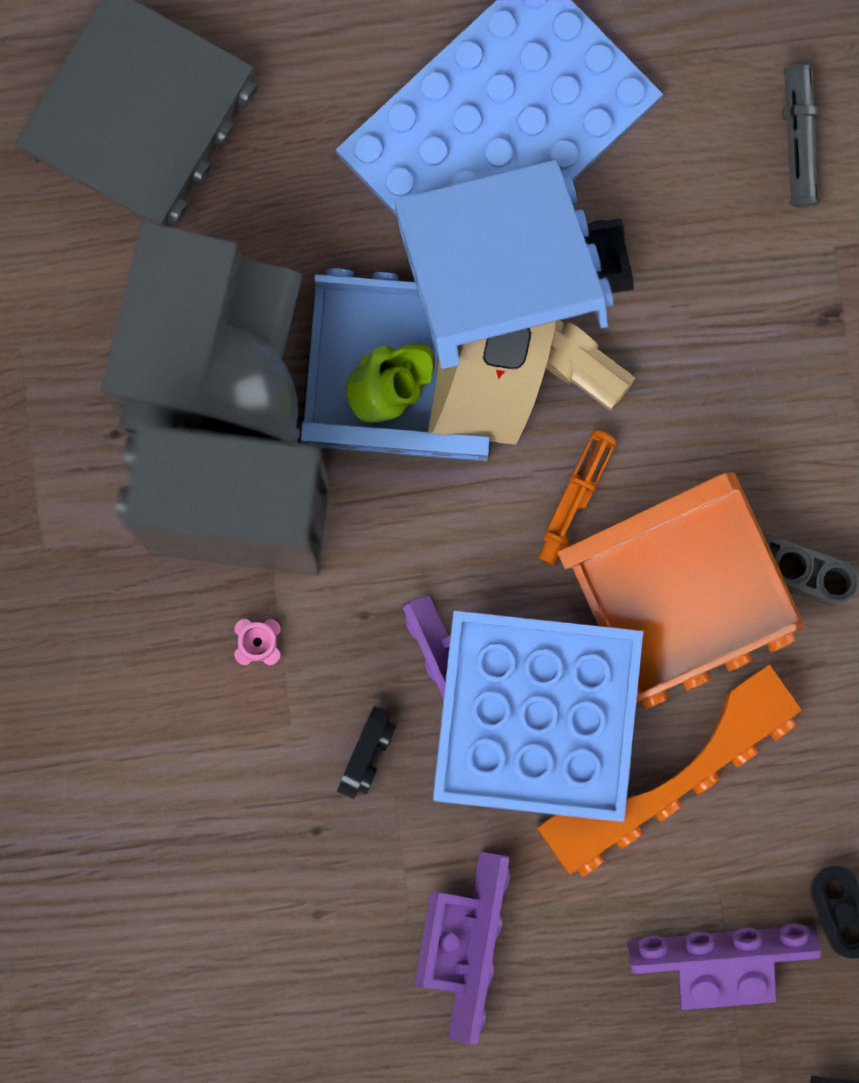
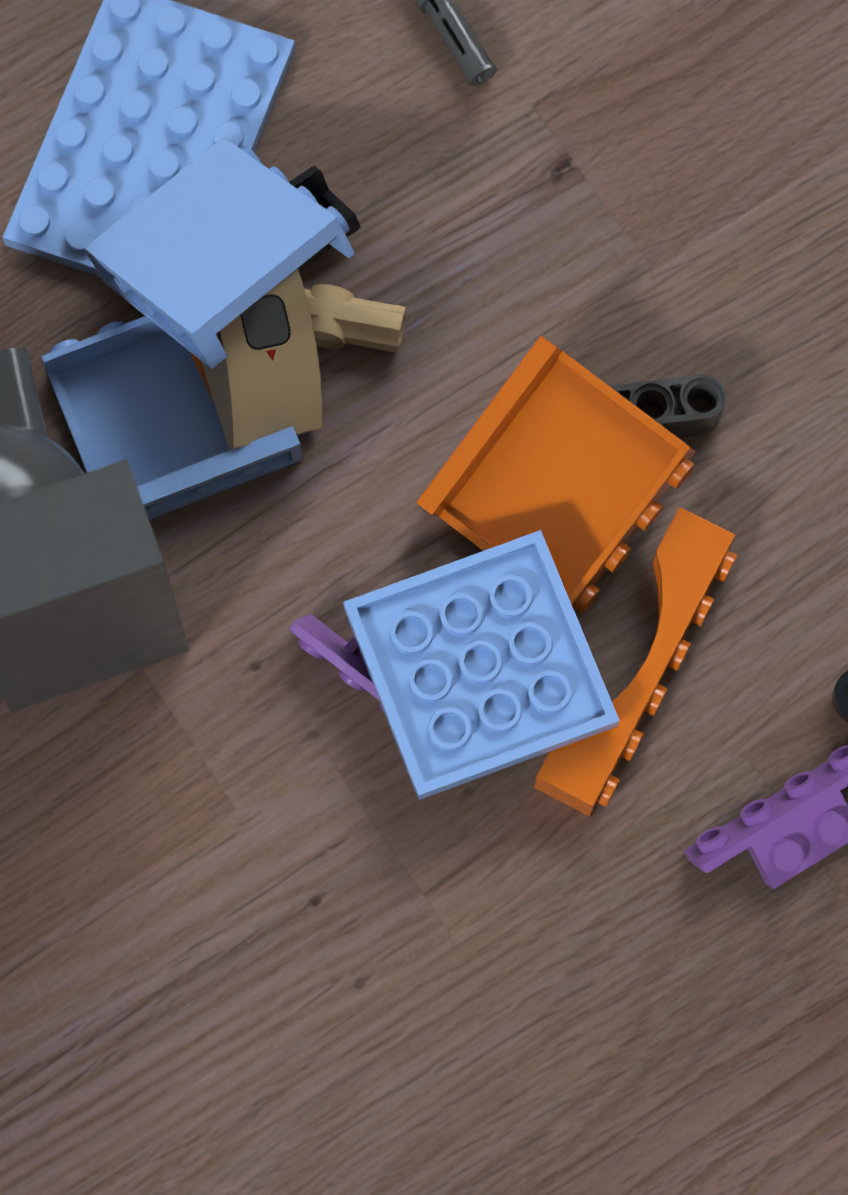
camera: 30 degrees left, 10 degrees down
(266, 651) = (163, 727): bright pink plate -> none
(359, 773) = (328, 816): black plate -> none
(389, 381) = (165, 421): lime head -> none
(461, 944) = (521, 935): medium lavender bracket -> none
(575, 496) = (406, 448): orange piece -> none

